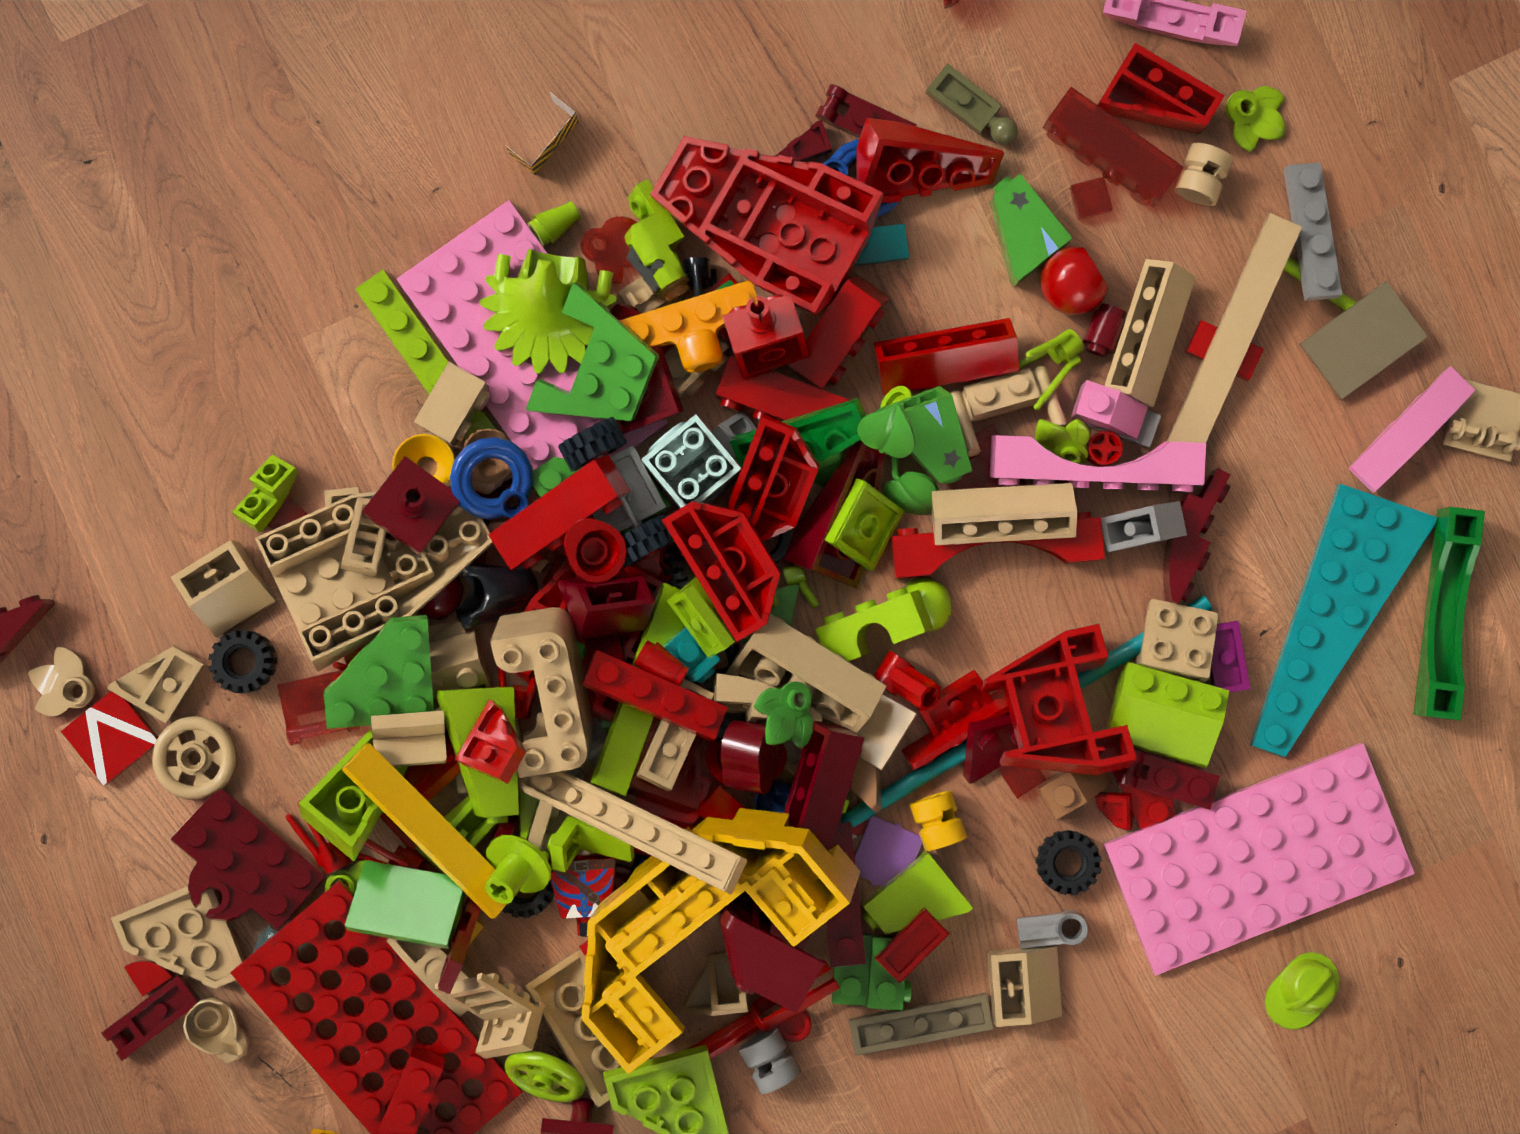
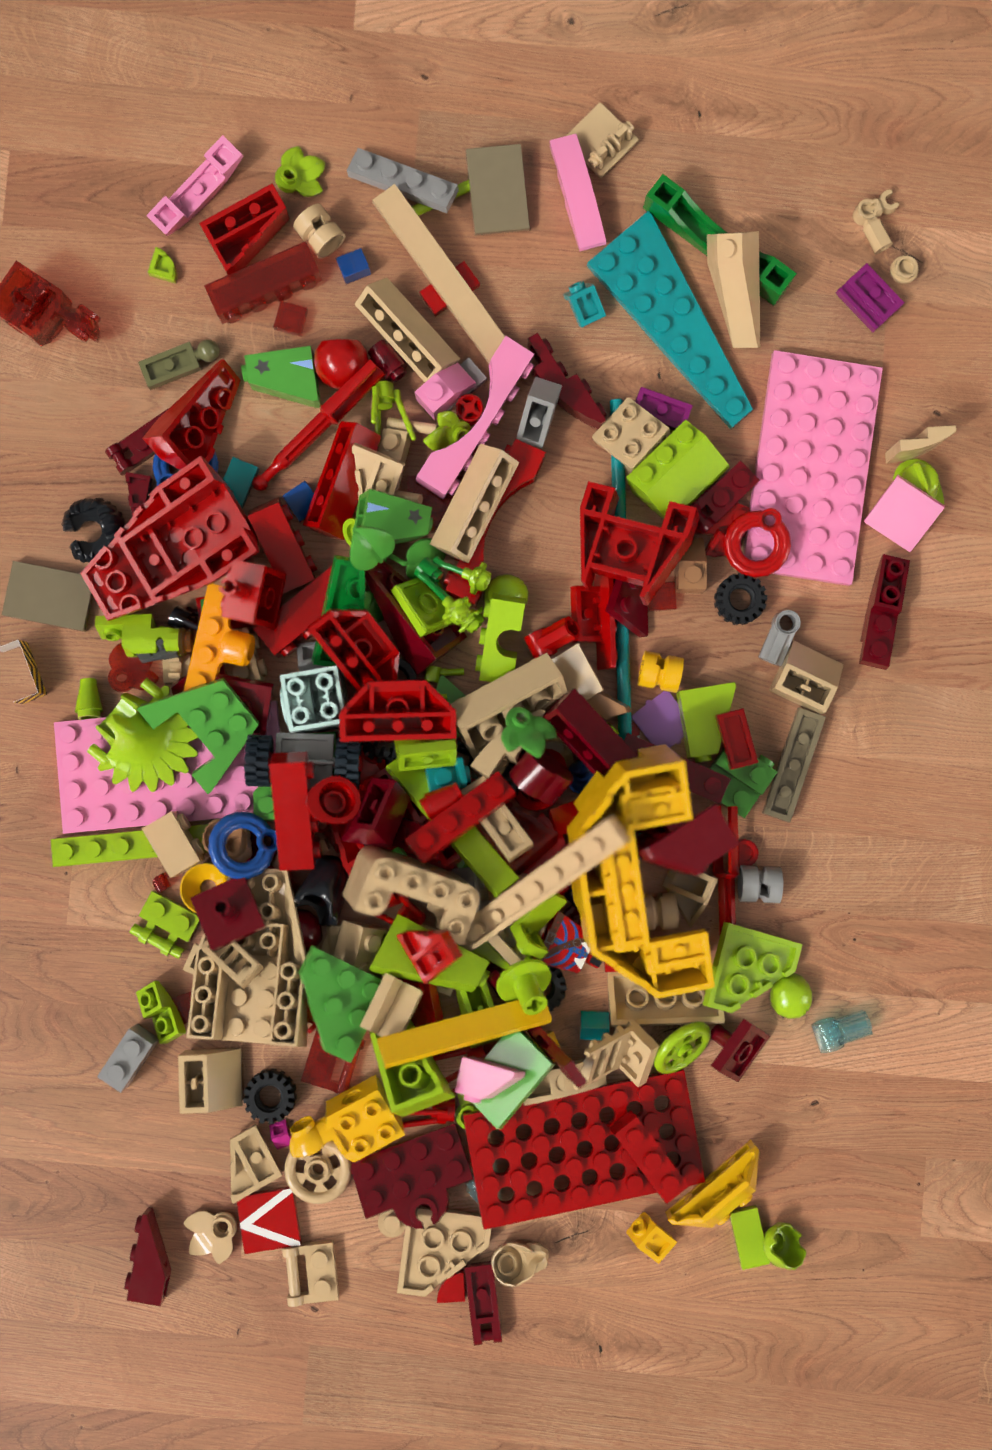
camera: 60 degrees left, 0 degrees up
(87, 822) = (320, 1273): none -> tan plate
(178, 869) = (390, 1224): none -> tan plate
(198, 487) = (128, 1057): none -> light grey brick
(208, 696) = (280, 1134): none -> dark pink piece
(267, 767) = (355, 1121): none -> yellow brick
(372, 444) = (169, 916): none -> lime plate
(390, 882) = (484, 1079): none -> bright pink slope
(404, 413) = (161, 882): none -> clear red hand
(515, 966) = (594, 1024): none -> teal slope
(639, 114) = (47, 596): none -> dark tan tile
(678, 969) = (661, 911): none -> tan wheel
(761, 113) = (97, 511): none -> black piece
(875, 564) = (456, 610): none -> lime plant
(899, 323) = (299, 500): none -> blue slope
(976, 388) = (376, 470): none -> tan wing
(1011, 301) = (330, 413): none -> red piece
(1067, 28) = (162, 266): none -> lime tile
(1145, 1027) = (883, 611): none -> dark red slope
(1163, 829) = (750, 520): none -> red piece
(1188, 232) = (353, 266): none -> blue slope
(1266, 989) = (904, 513): none -> bright pink tile
(1294, 506) = (584, 303): none -> teal bracket
(1353, 964) = (923, 443): none -> tan slope
(1418, 656) = (735, 274): none -> tan wedge
(1484, 815) = (869, 297): none -> magenta plate

